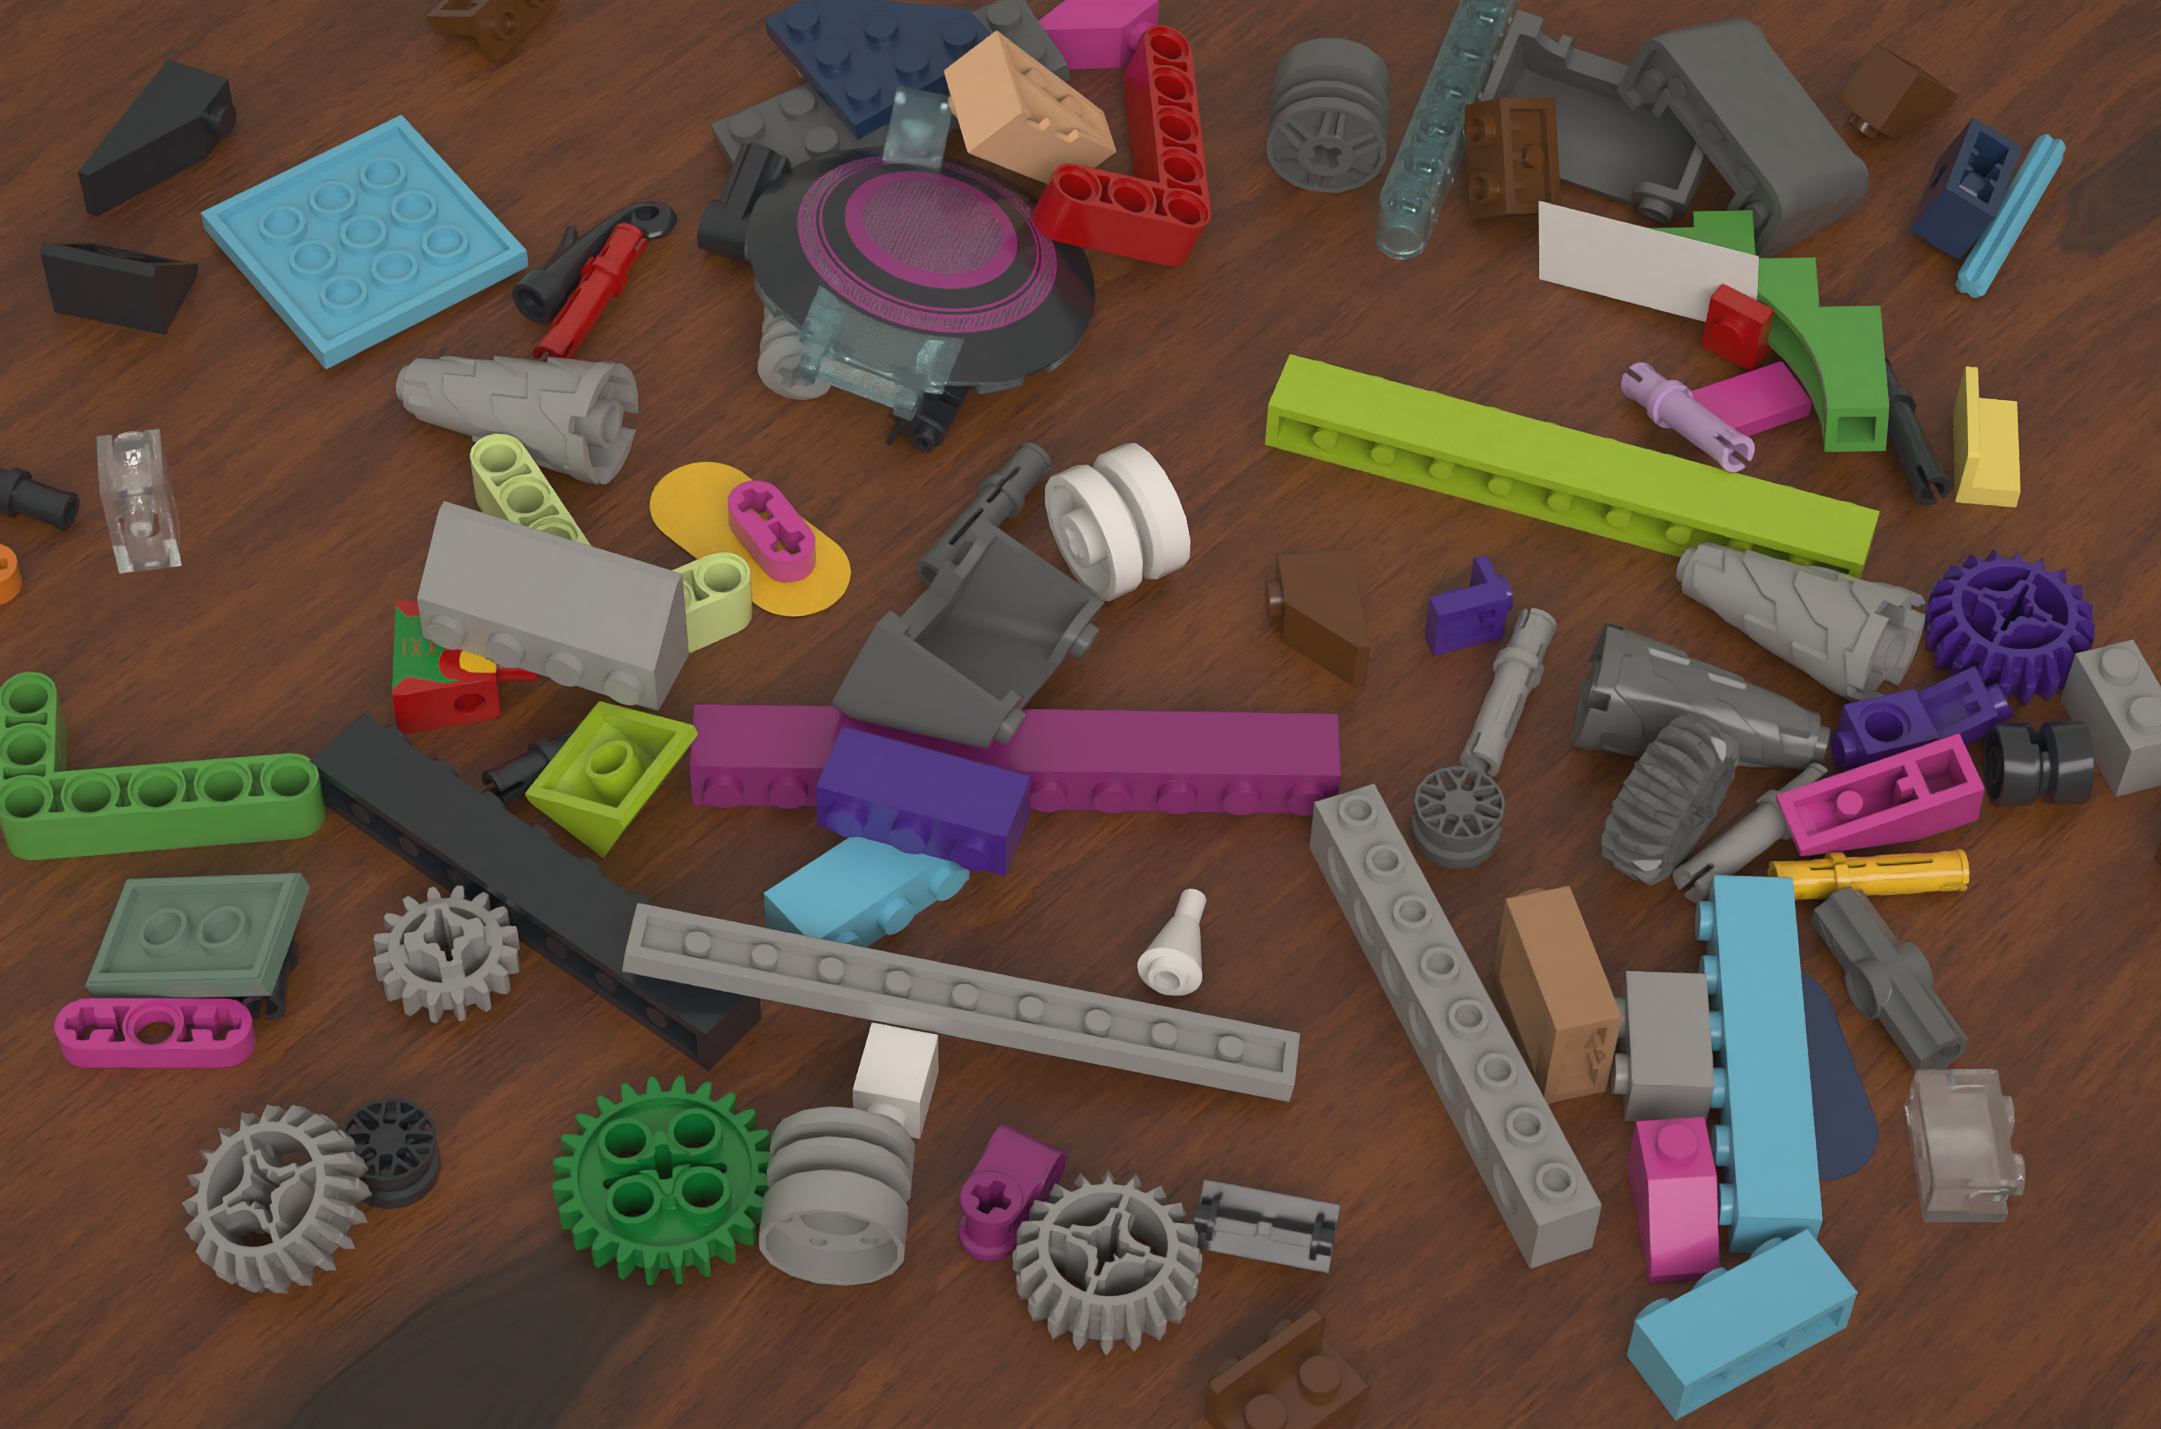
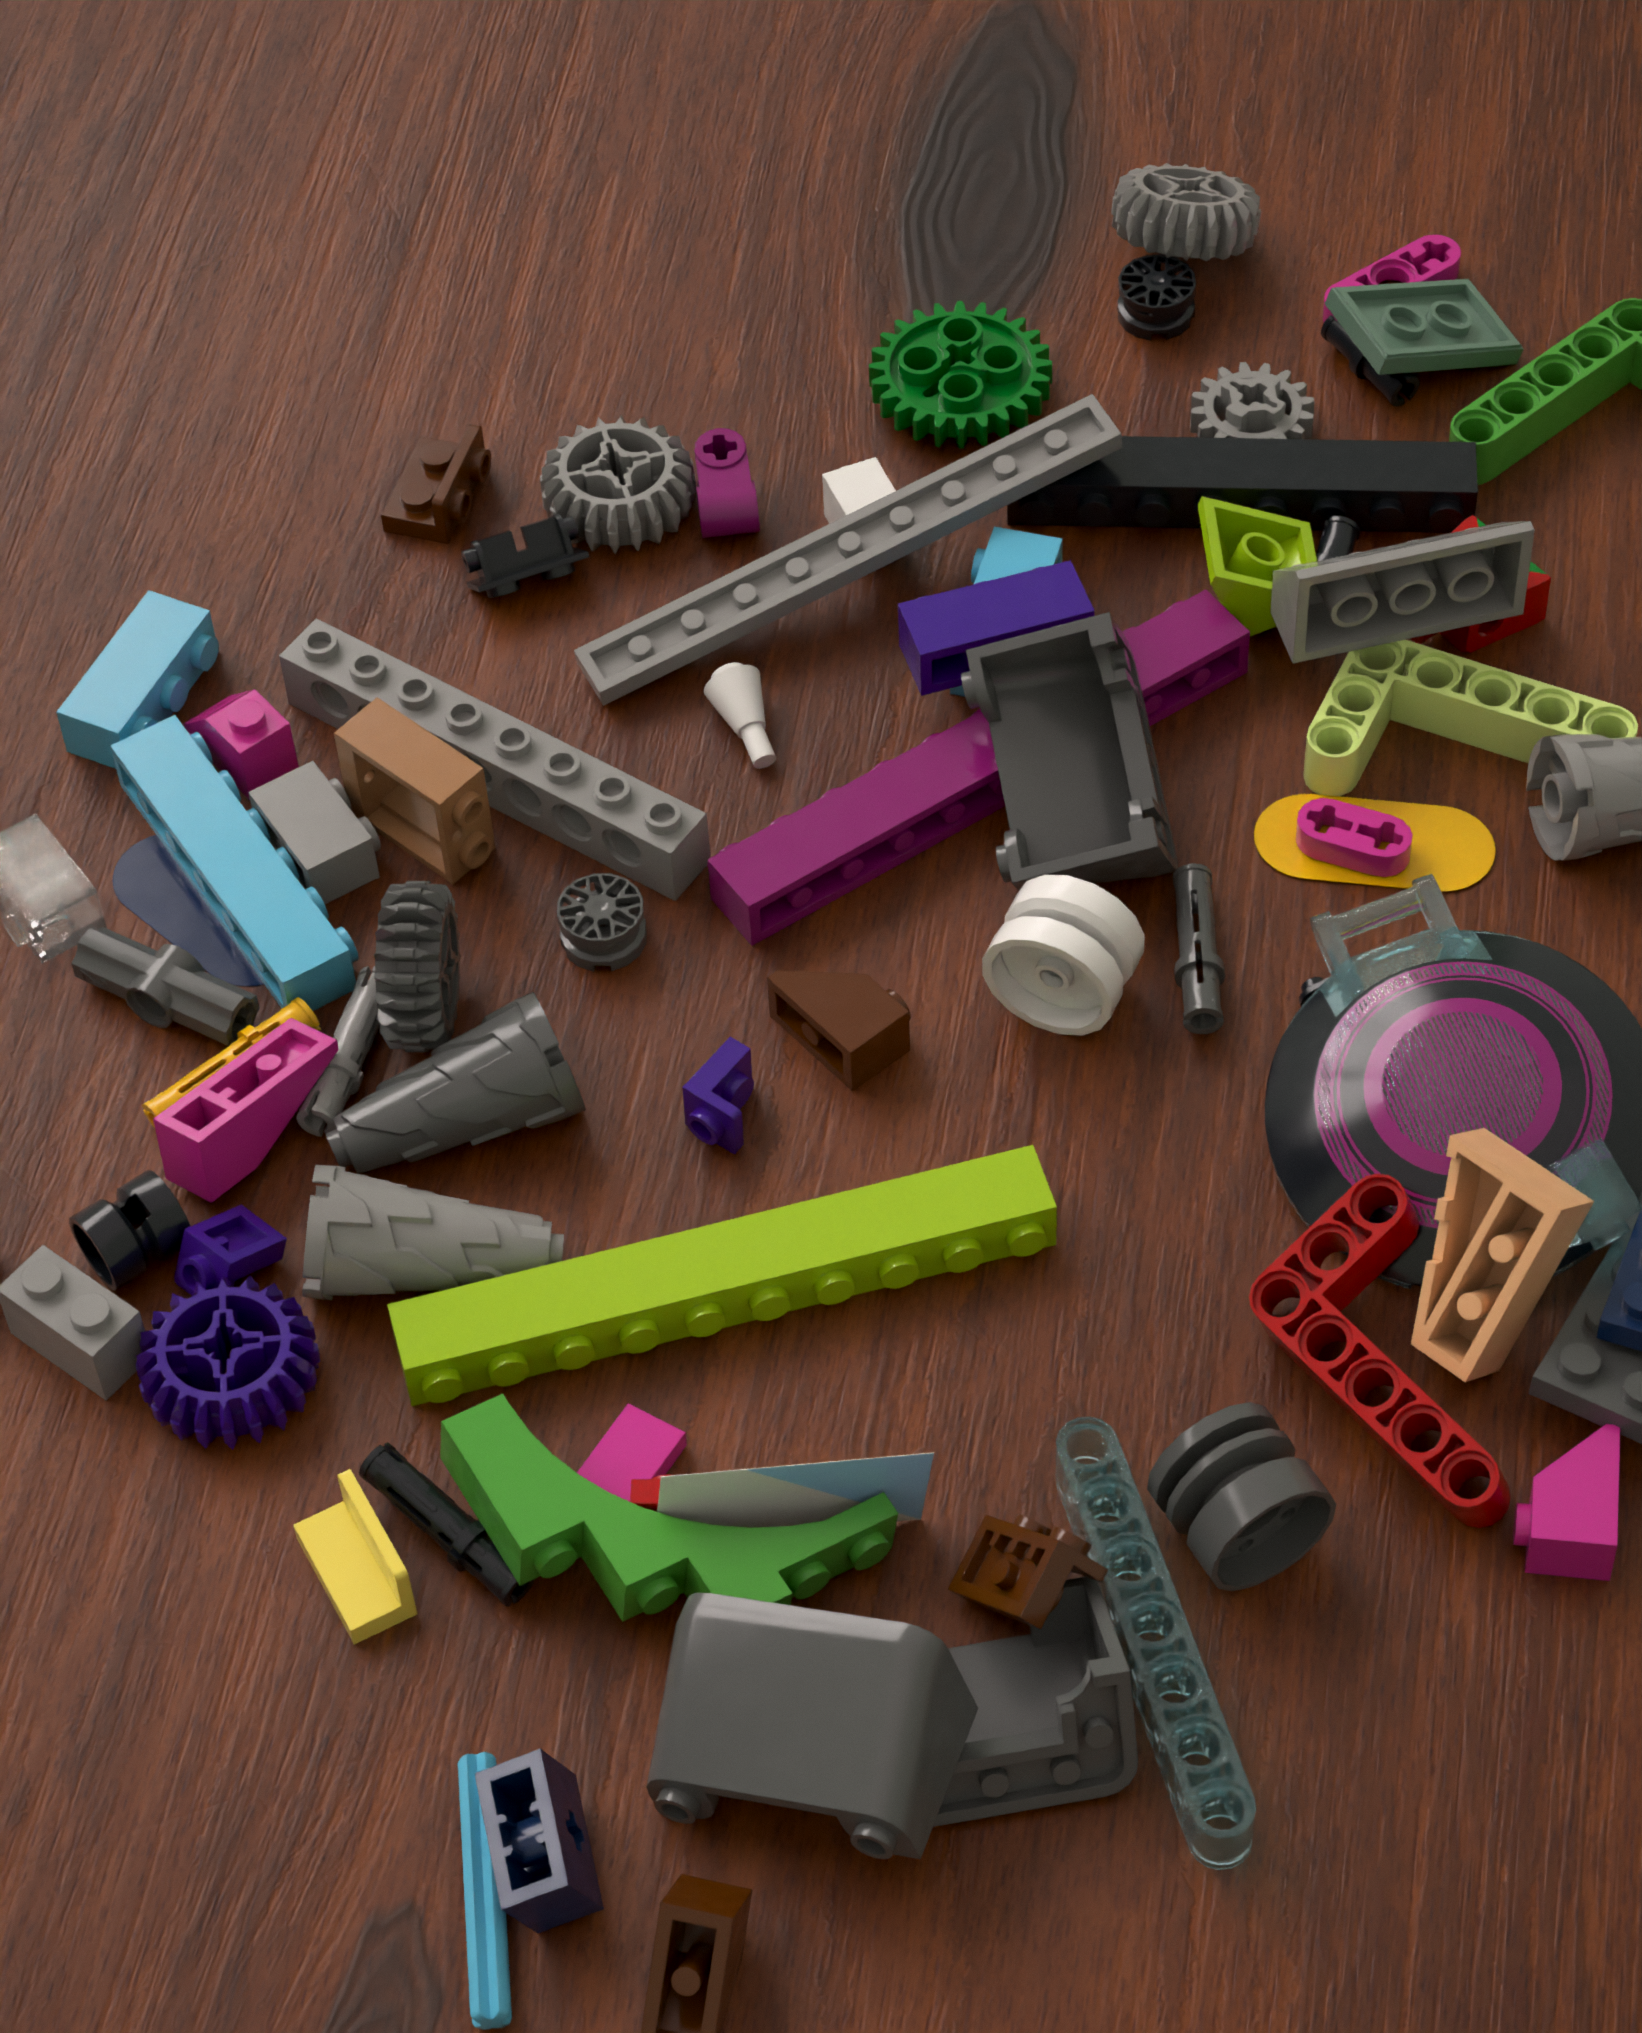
camera: 150 degrees right, 0 degrees up
(837, 1196) = (823, 391): light grey wheel -> none
(1516, 672) = (642, 1071): light grey pin -> none
(1673, 406) = (652, 1380): lavender pin -> none
(1880, 729) = (260, 1179): dark purple brick -> none

